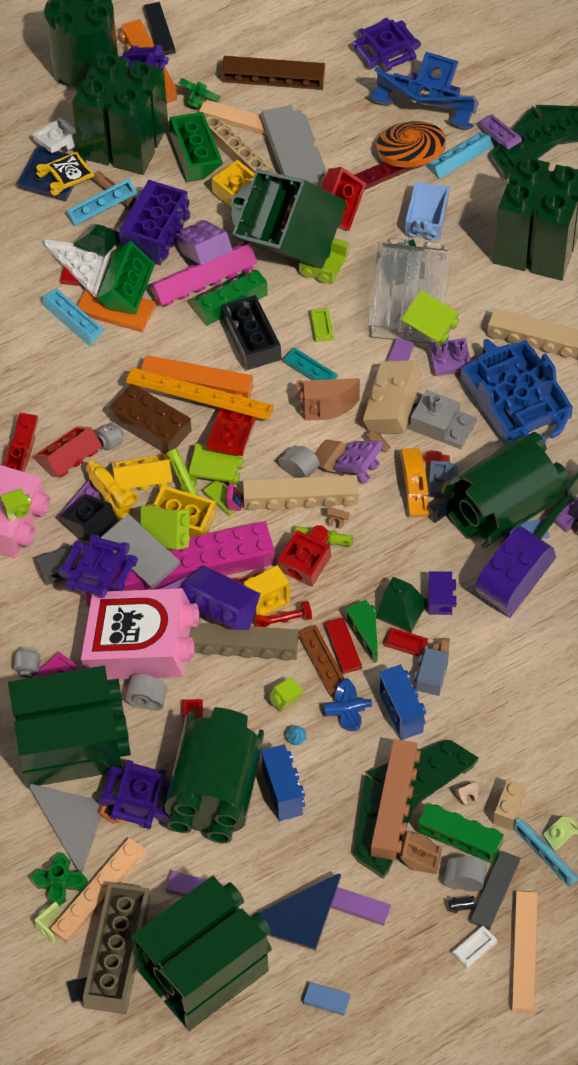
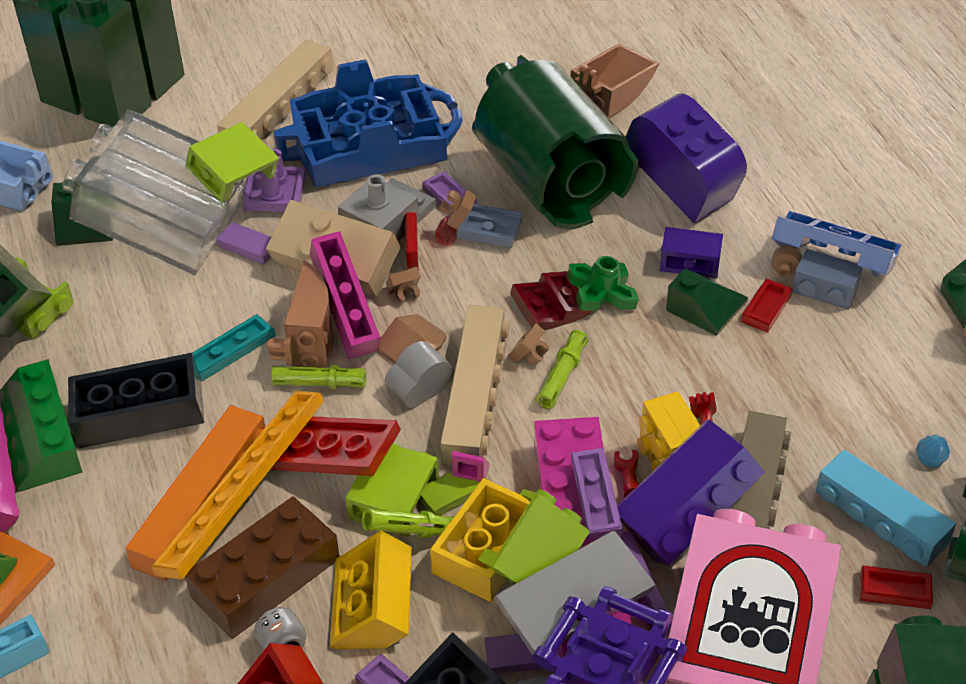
camera: 80 degrees left, 10 degrees down
(110, 490) = (405, 641): yellow piece -> none
(146, 692) = (853, 640): light grey piece -> none
(210, 553) = (596, 493): none -> medium lavender tile
(253, 695) = (885, 508): none -> medium azure brick
(286, 694) = (866, 443): lime brick -> none
(293, 421) = (313, 376): none -> lime pin
(306, 555) = (605, 384): red brick -> none
(321, 324) = (149, 322): lime tile -> none
(321, 658) = (794, 401): dark orange tile -> none
(343, 408) = (346, 295): none -> dark pink brick
(343, 645) = (767, 375): red tile -> none
(347, 706) = (882, 383): blue plant -> none
(358, 458) = (437, 296): medium lavender plate -> none
(363, 622) = (743, 340): green slope -> none
(383, 523) = (549, 301): none -> dark red slope
(399, 547) = (602, 283): none -> green plant
(401, 701) = (890, 309): blue brick -> none
(415, 439) = (411, 240): none -> red tile
(415, 482) = (484, 244): light orange slope -> none
(441, 454) = (459, 209): none -> medium nougat tile
(441, 508) = (539, 226): black tile -> none
(456, 669) = (875, 252): none -> piece
(472, 452) = (440, 185): none -> medium lavender tile

